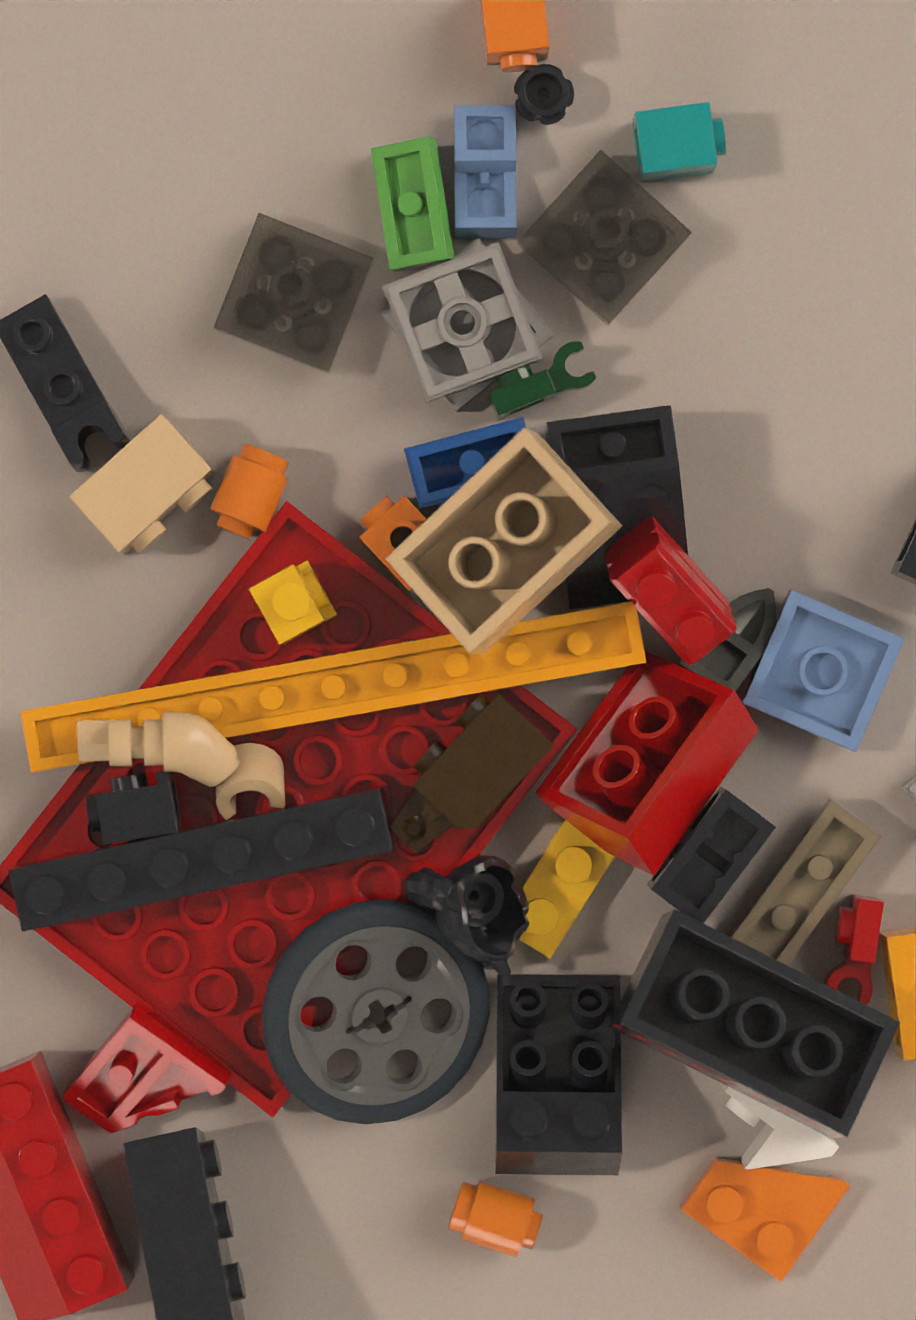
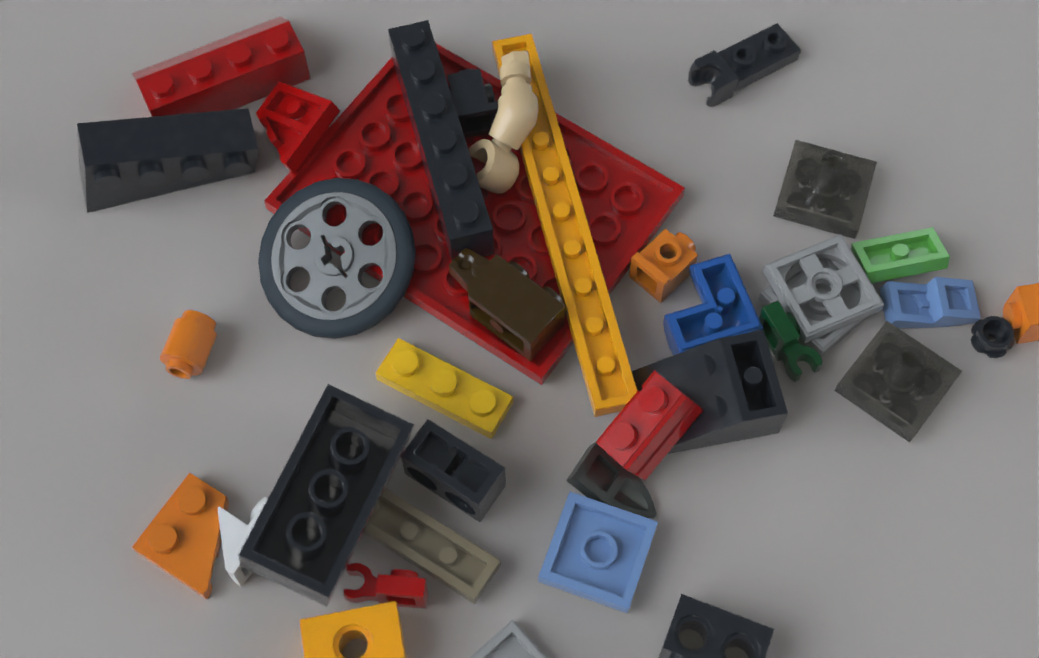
camera: 90 degrees right, 25 degrees down
(144, 486) = (685, 107): tan brick -> none
(250, 491) = (688, 167): orange brick -> none
(293, 602) = (616, 182): yellow brick -> none
(487, 921) = (397, 309): black hair -> none
(503, 542) = (676, 294): tan brick -> none
(558, 1075) = (278, 376): black slope -> none
(648, 760) = (522, 424): red slope -> none
(677, 141) = (977, 423): teal brick -> none

